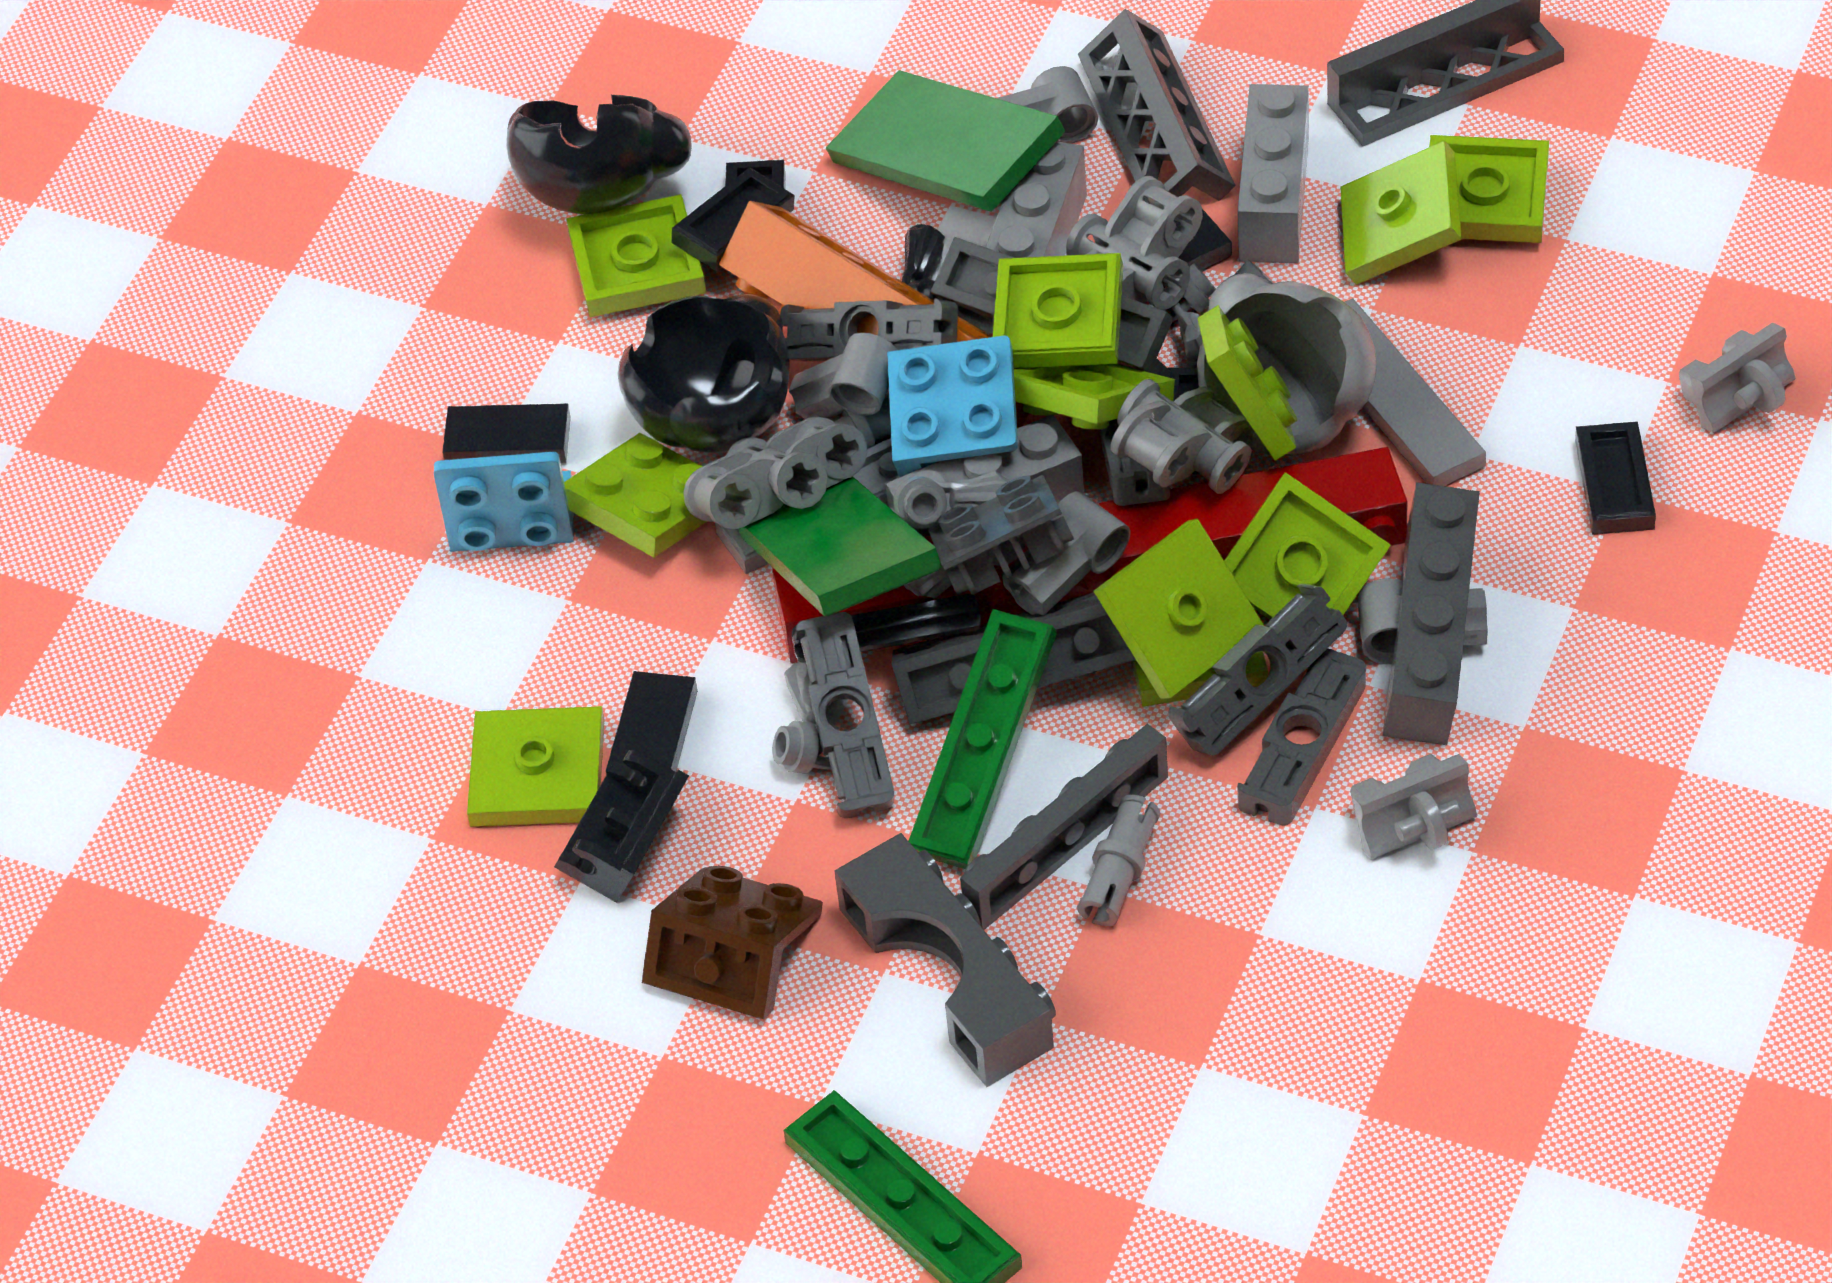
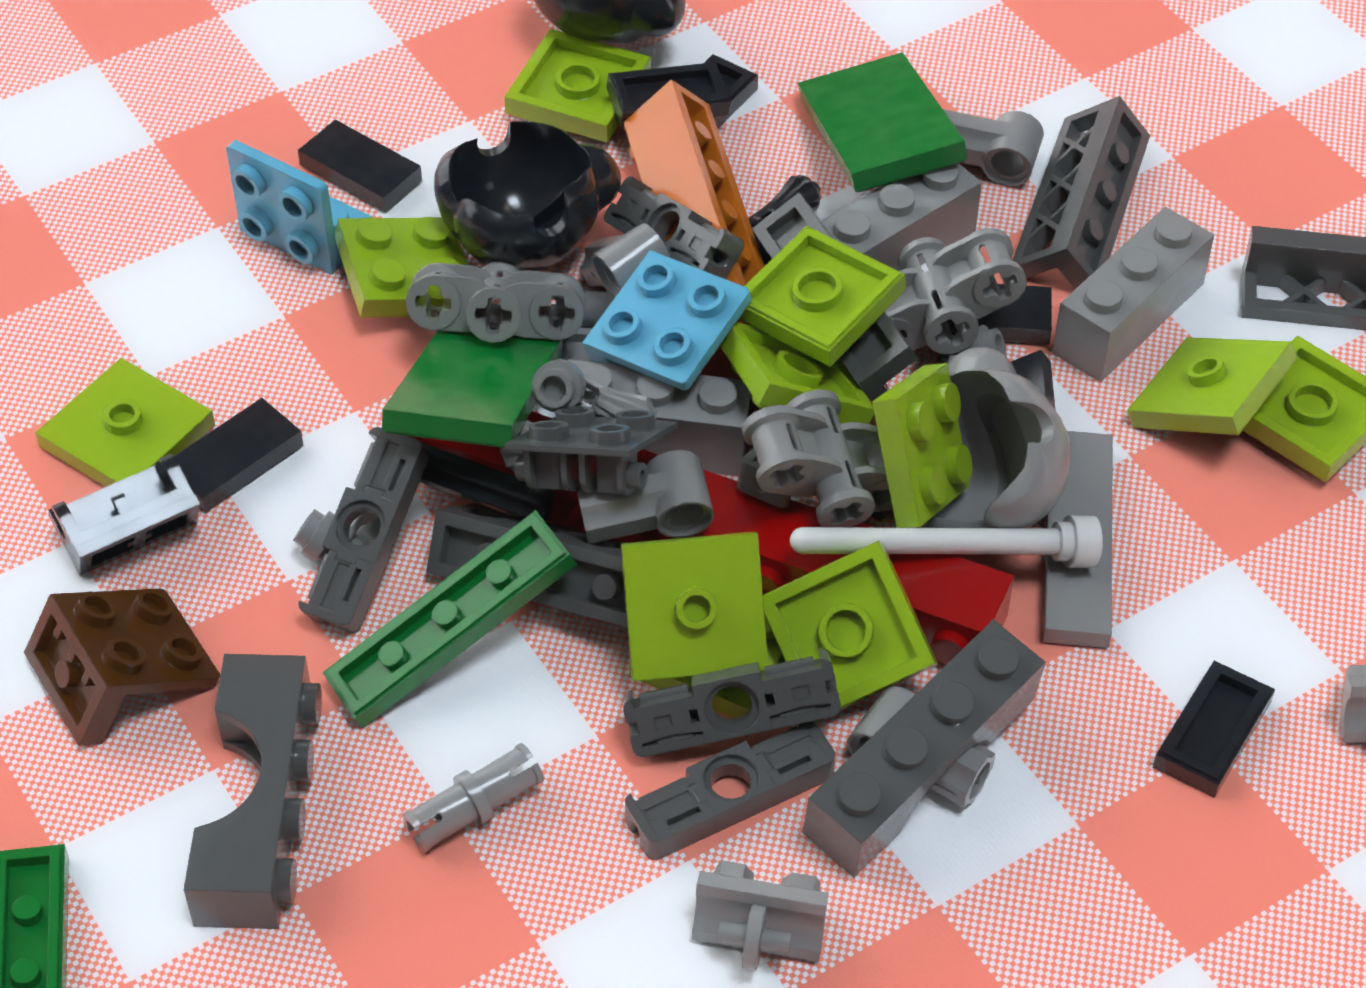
camera: 30 degrees right, 0 degrees up
(1064, 826) = (452, 737): dark grey plate -> none
(1405, 396) = (1073, 541): none -> white piece

